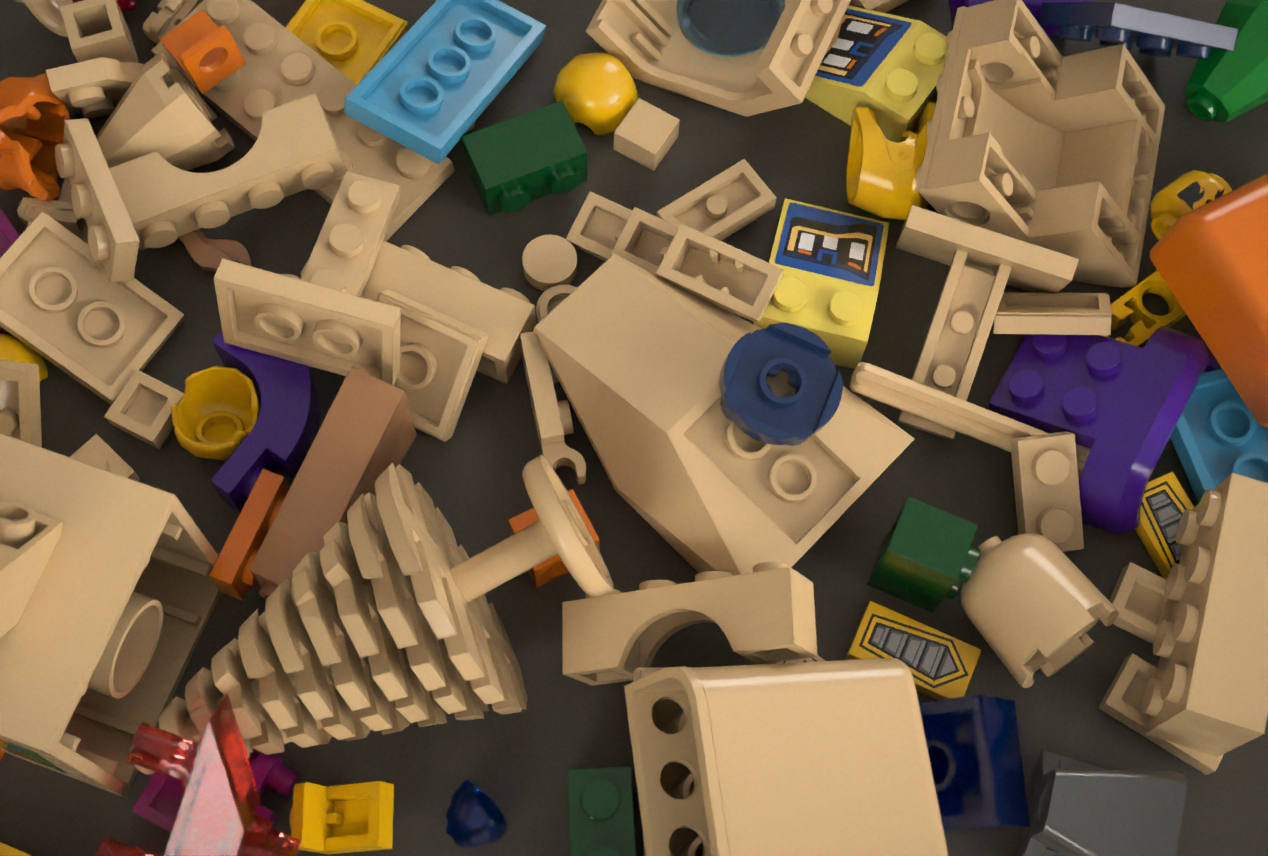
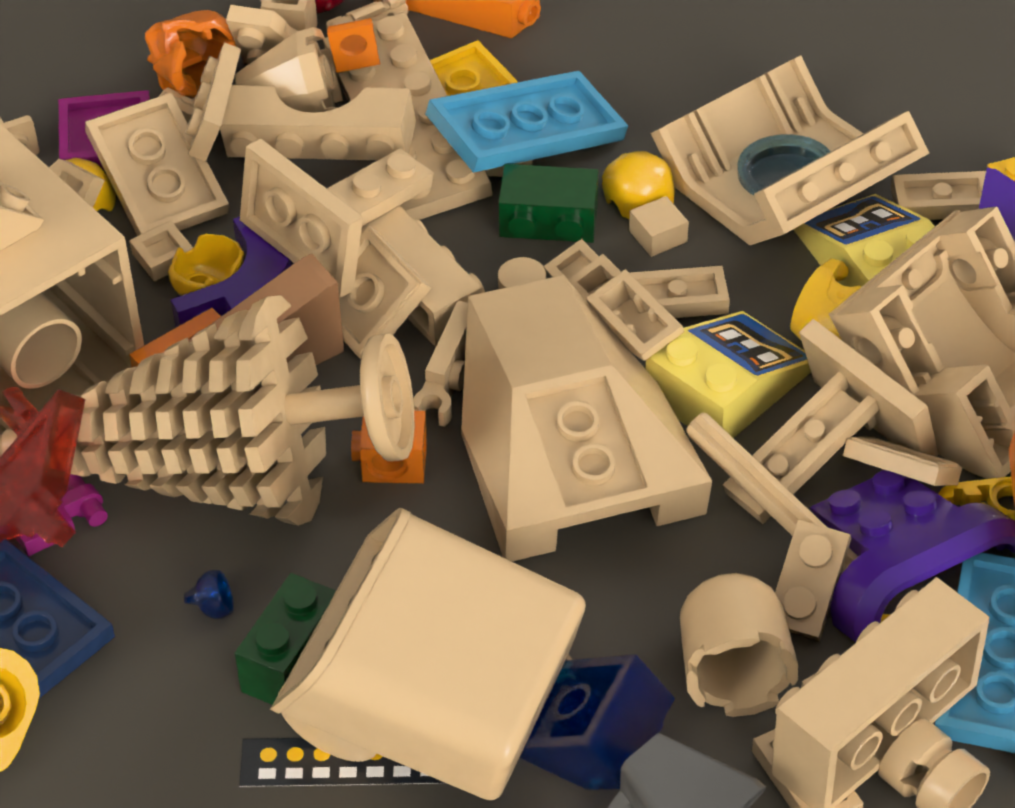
camera: 35 degrees right, 20 degrees down
(343, 817) = (113, 548): yellow bracket -> none
(761, 613) = (490, 514): tan arch -> none
(810, 370) = (619, 414): dark blue plate -> none
(925, 555) = (663, 562): dark green brick -> none
(936, 660) = (613, 631): tile -> none

